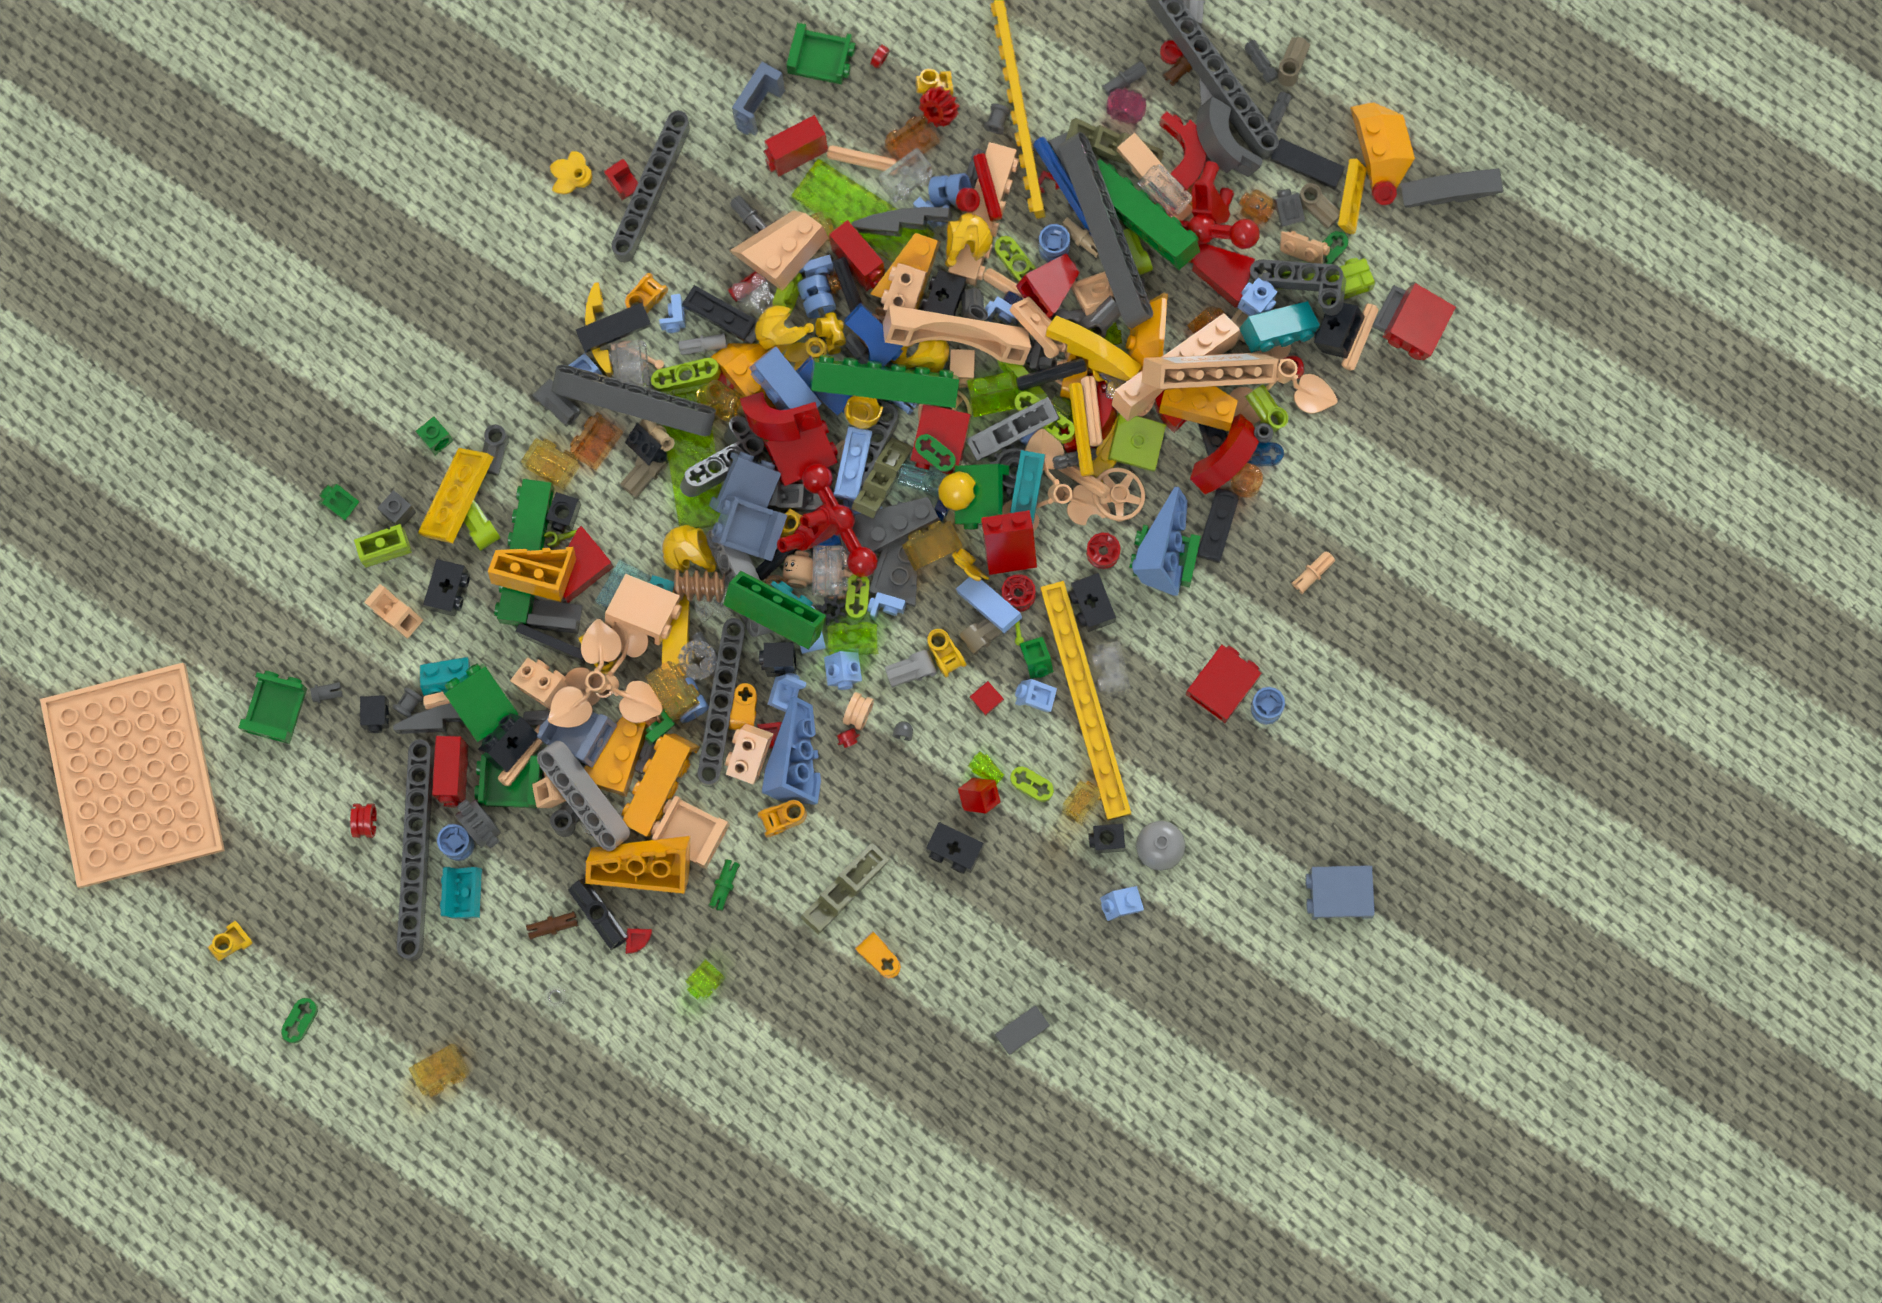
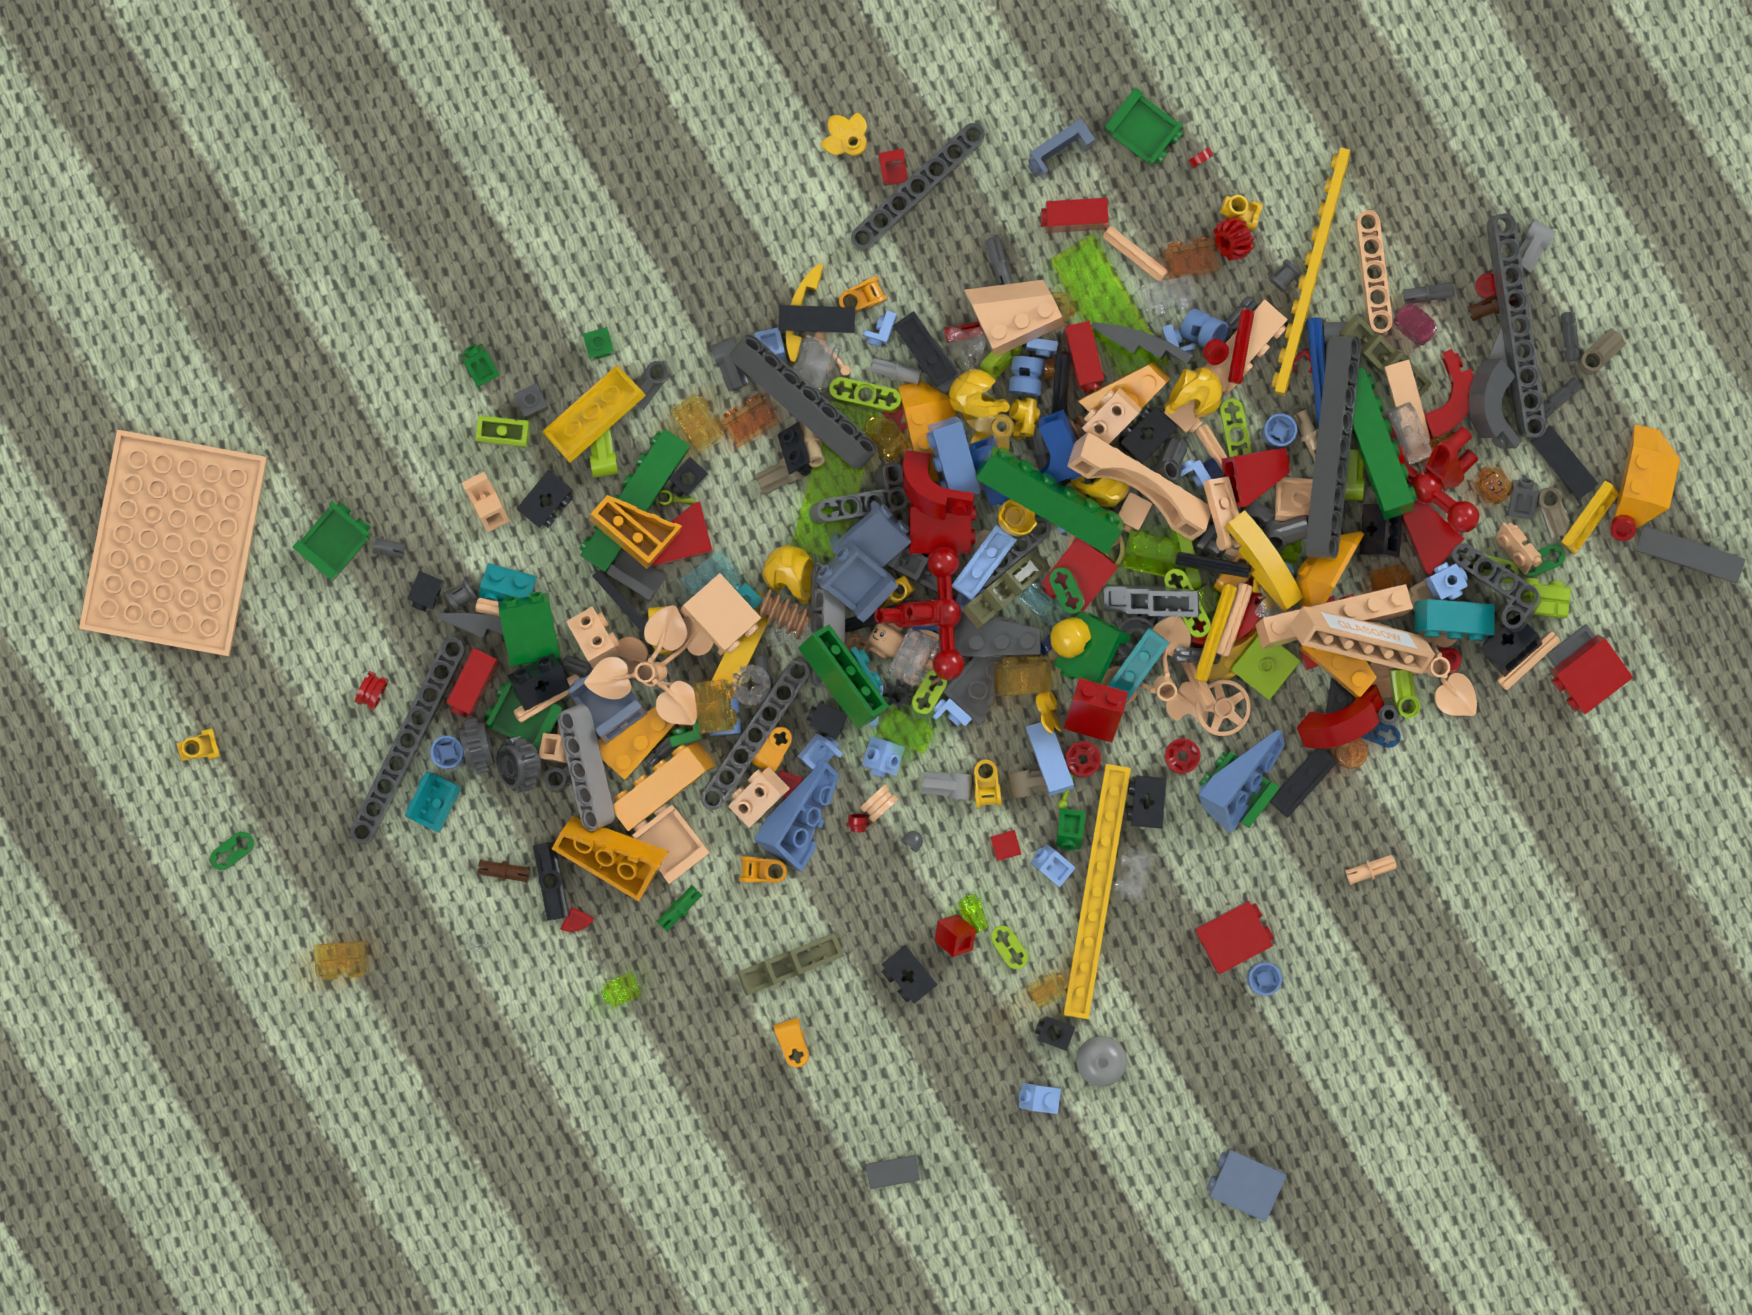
camera: 20 degrees right, 10 degrees up
(523, 823) = (518, 764): none -> dark grey gear
(1069, 72) = (1373, 260): none -> light nougat beam
(1181, 286) = (1380, 536): none -> black brick

